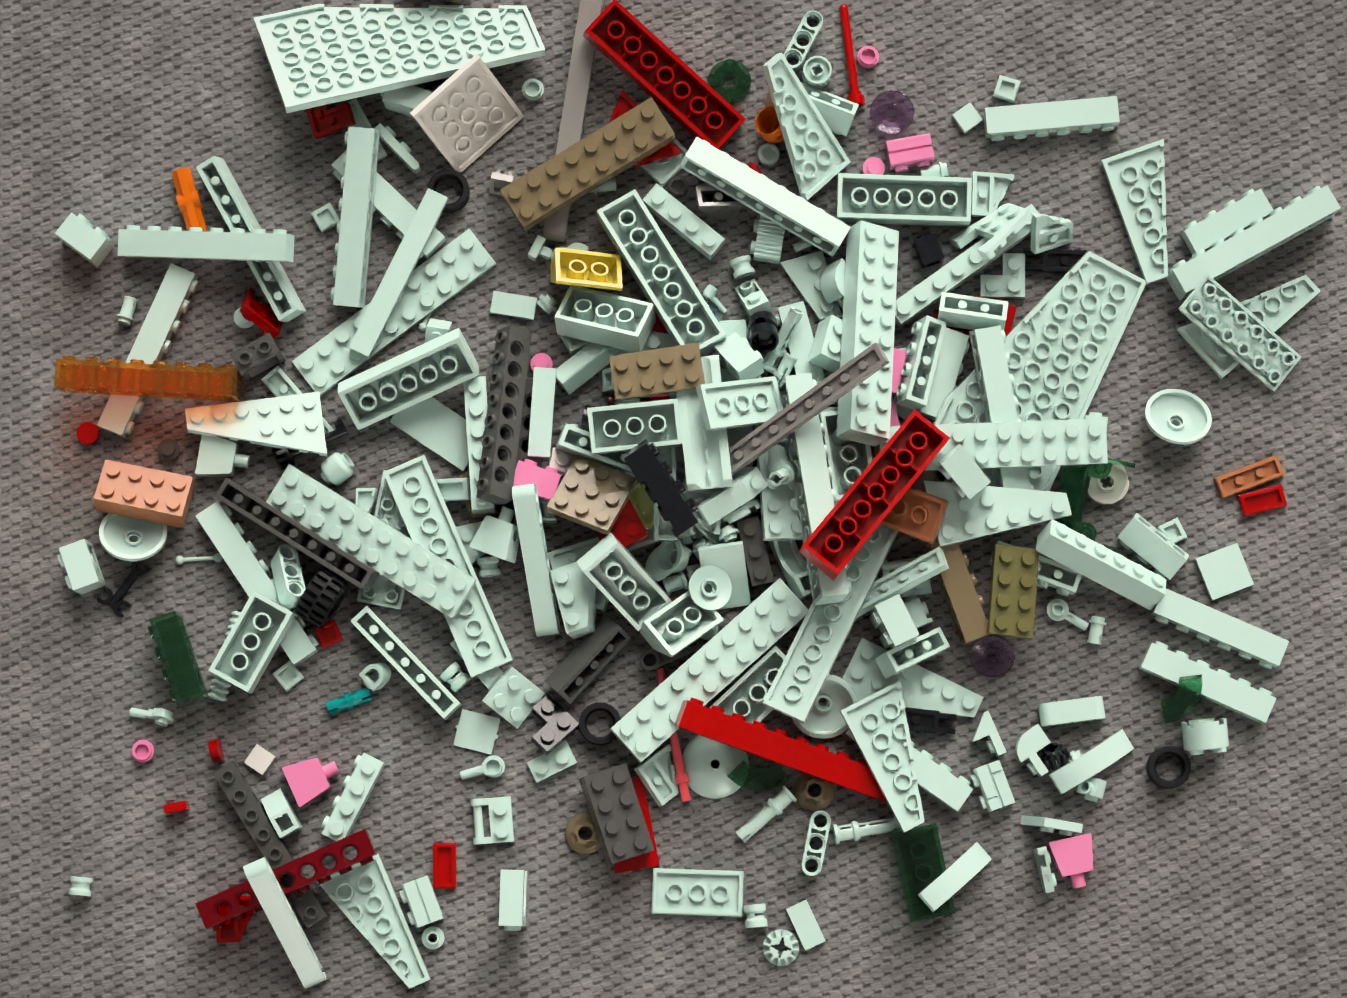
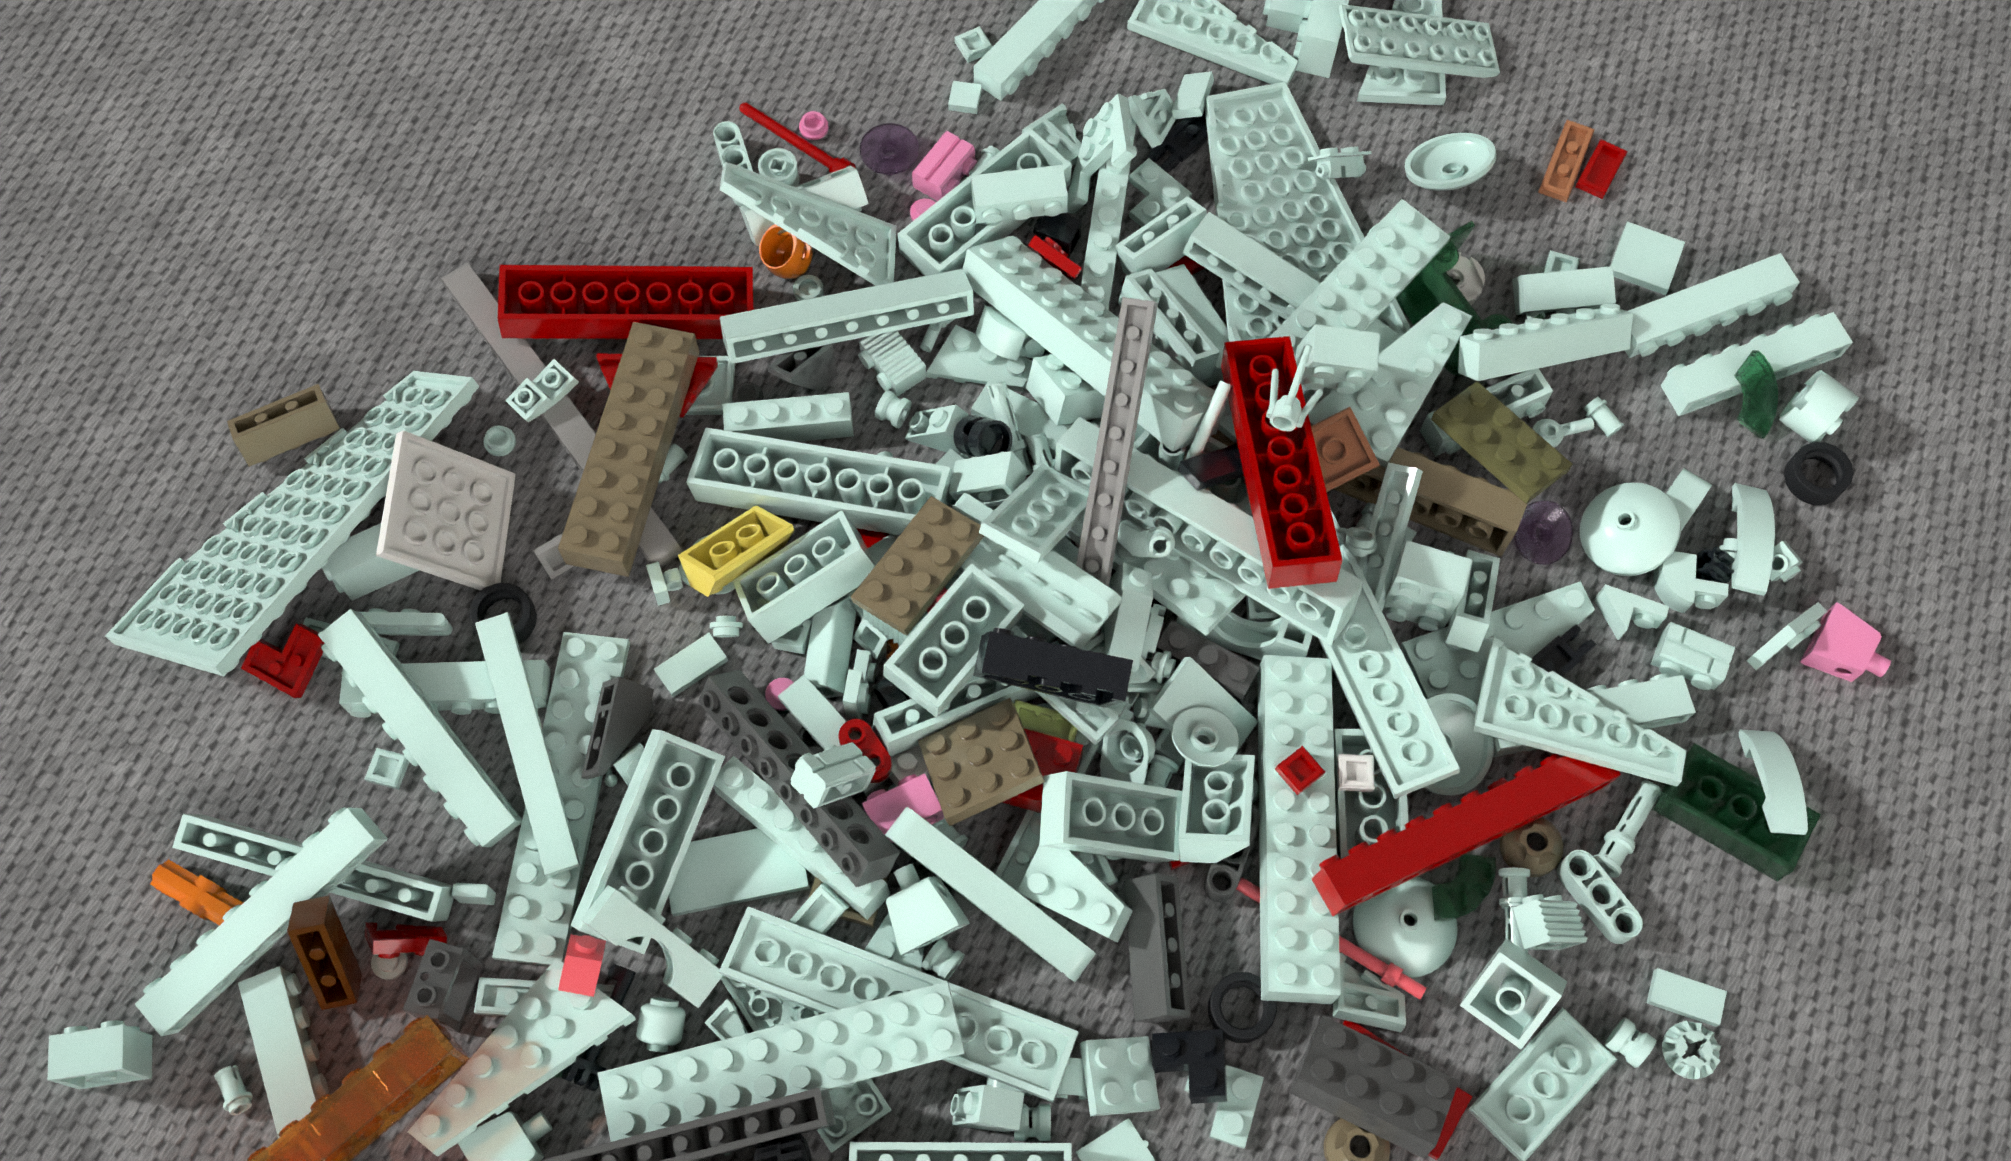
camera: 45 degrees left, 15 degrees down
(219, 289) = (324, 952): none -> reddish brown brick
(310, 322) = (473, 893): none -> light aqua tile
(325, 409) = (582, 965): none -> coral brick
(359, 406) = (620, 919): none -> light aqua arch
(440, 651) = (987, 1108): none -> light aqua slope
(450, 303) = (618, 718): none -> dark grey slope
(517, 434) = (832, 774): none -> light aqua brick
(547, 435) = (869, 745): none -> red plate
(572, 402) = (856, 696): none -> light aqua plate
(575, 87) = (542, 393): none -> light aqua slope
(723, 841) = (1514, 993): none -> light aqua brick
(730, 69) = (700, 245): clear green plate -> none
(732, 647) = (1300, 770): none -> red tile
(760, 675) = (1355, 772): none -> white tile
(776, 830) = (1548, 923): none -> light aqua brick
(844, 464) = (1212, 467): none -> black tile
(864, 441) = (1209, 420): none -> light aqua bar
(883, 568) = (1357, 540): none -> light aqua plate
(896, 477) = (1286, 412): none -> light aqua plant
(906, 267) = (1055, 256): none -> red wing
(919, 215) = (1019, 194): none -> light aqua brick
(1043, 863) = (1835, 682): light aqua wing -> none
(1044, 705) = (1635, 546): none -> light aqua dish
(1087, 240) = (1192, 95): none -> light aqua tile
(1126, 361) = (1337, 165): none -> light aqua hinge

